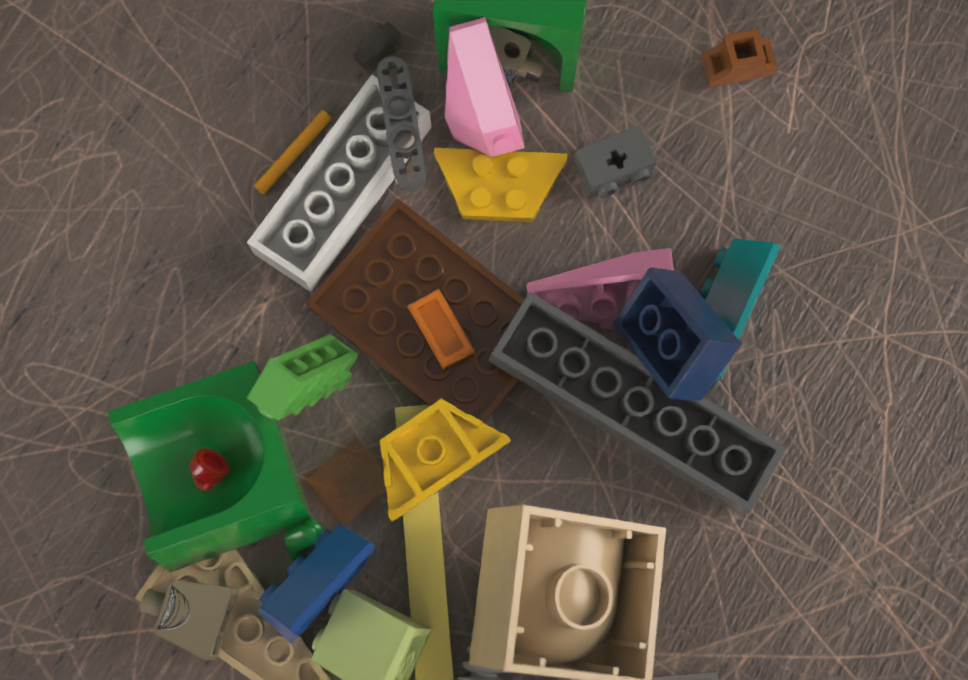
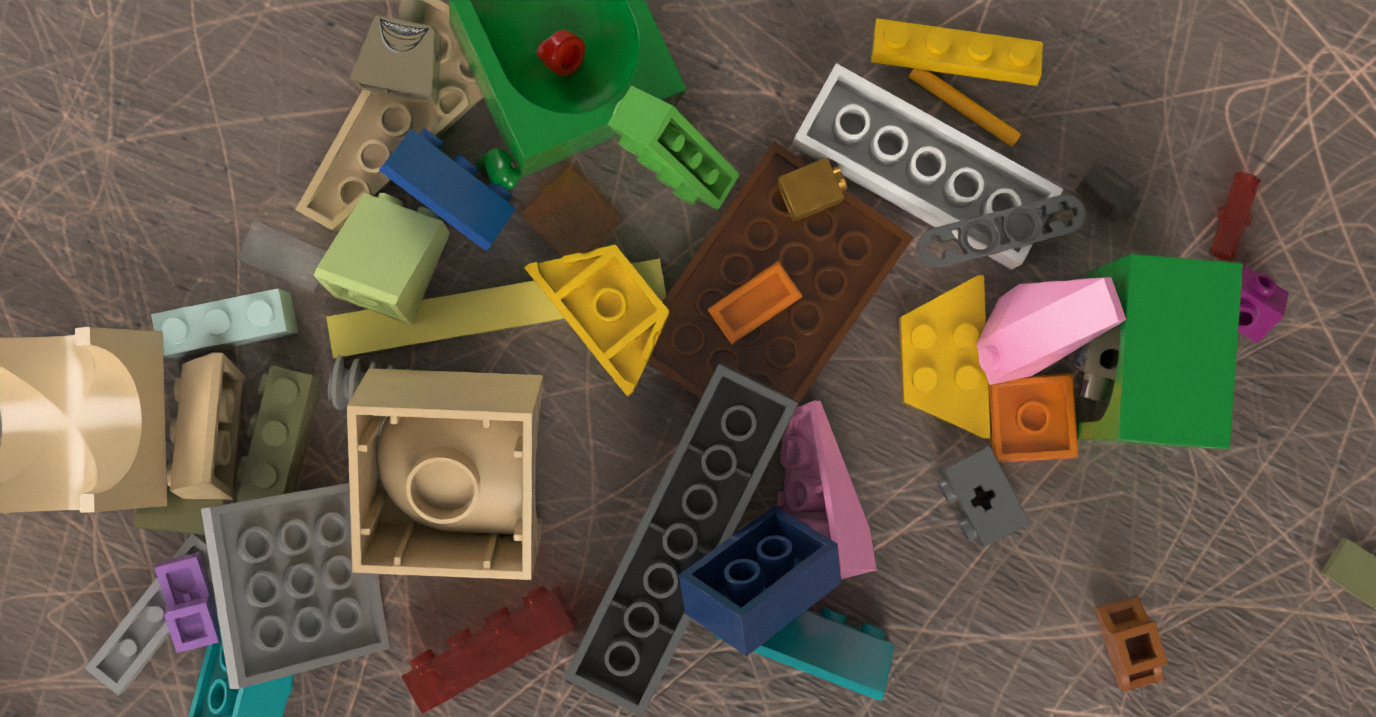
camera: 85 degrees right, 10 degrees up
(248, 154) = (957, 52): none -> yellow plate
(349, 272) = (812, 189): none -> pearl gold brick
(553, 119) = (1033, 418): none -> orange tile
(722, 580) = (489, 650): none -> clear red brick

